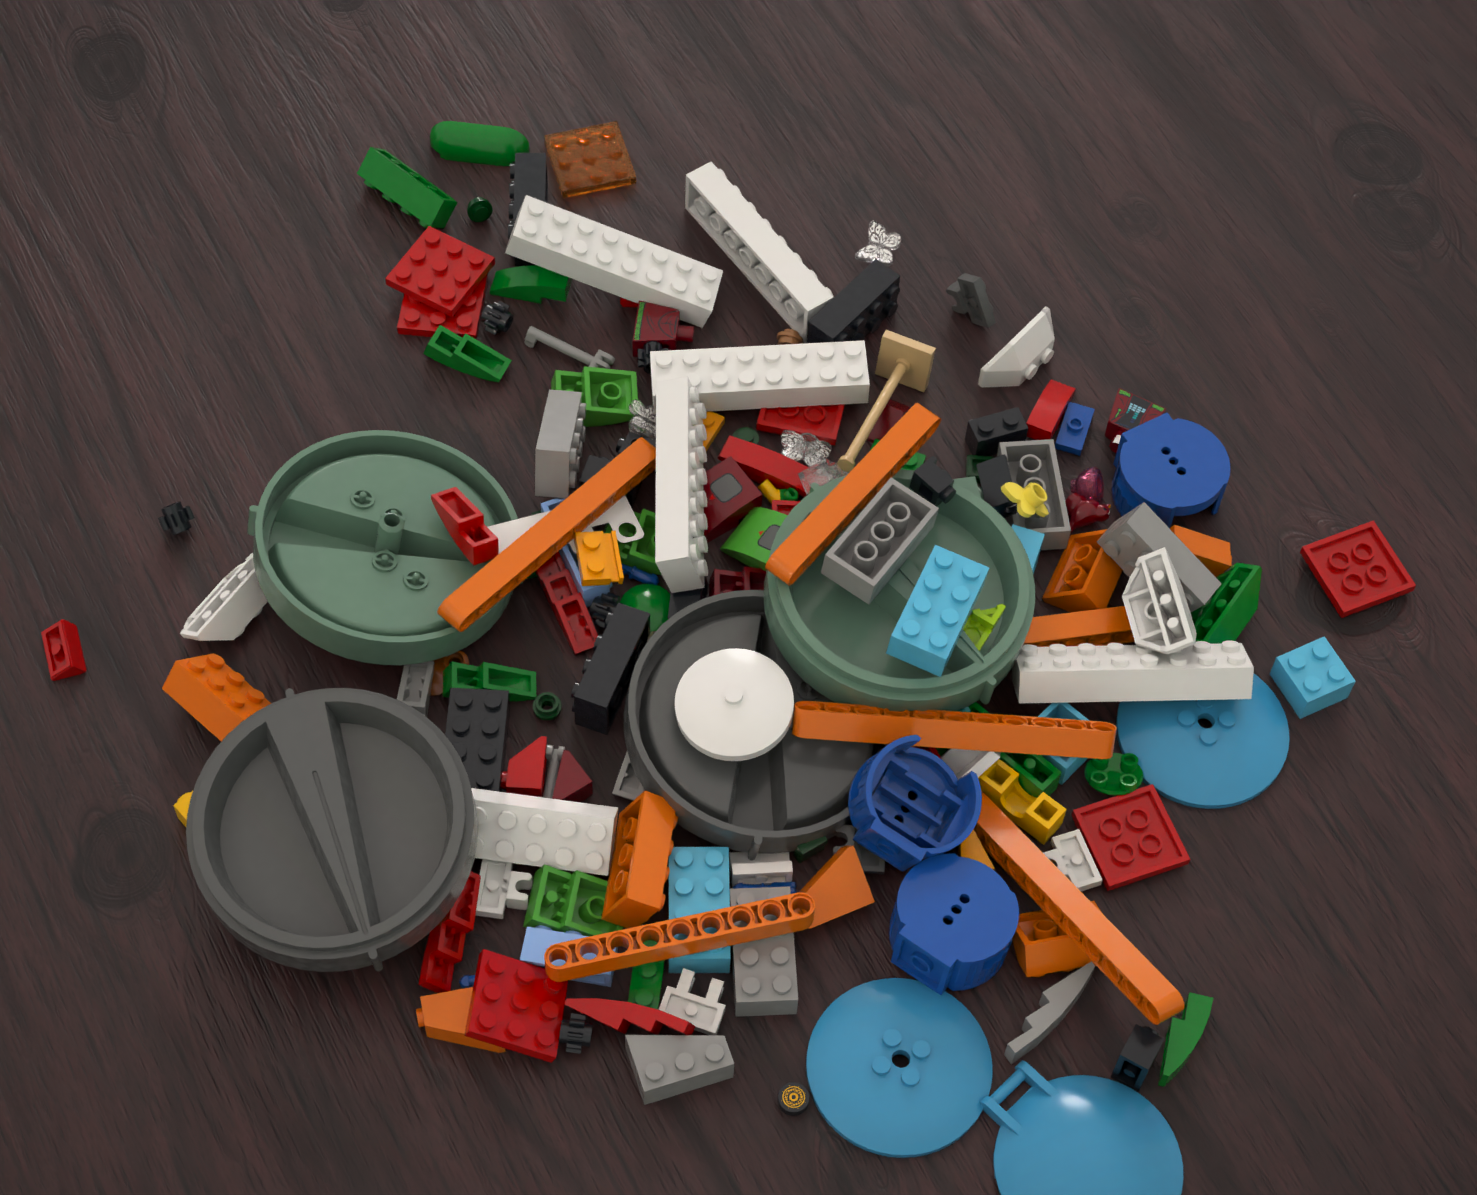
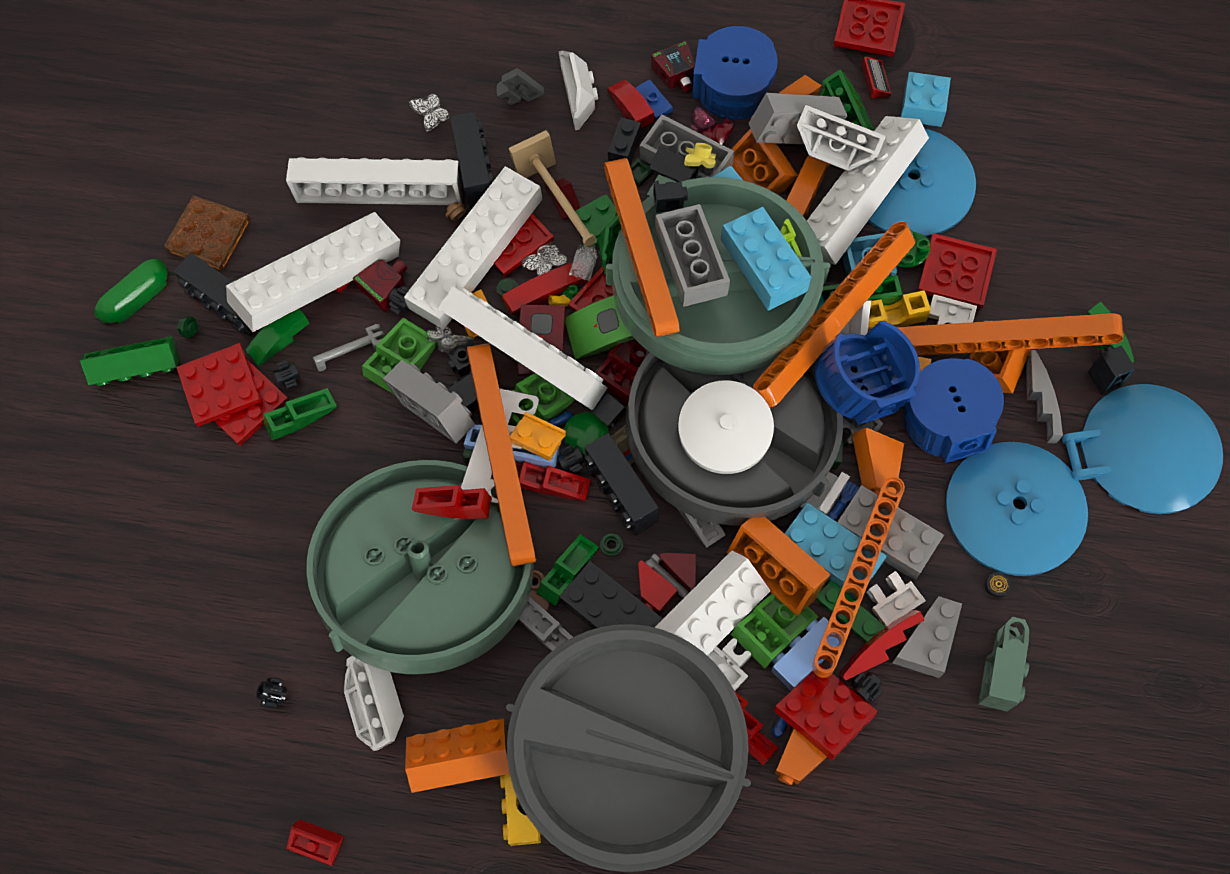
camera: 45 degrees left, 10 degrees up
(698, 1151) = (1006, 668): none -> sand green brick
(1298, 616) = (875, 78): none -> slope

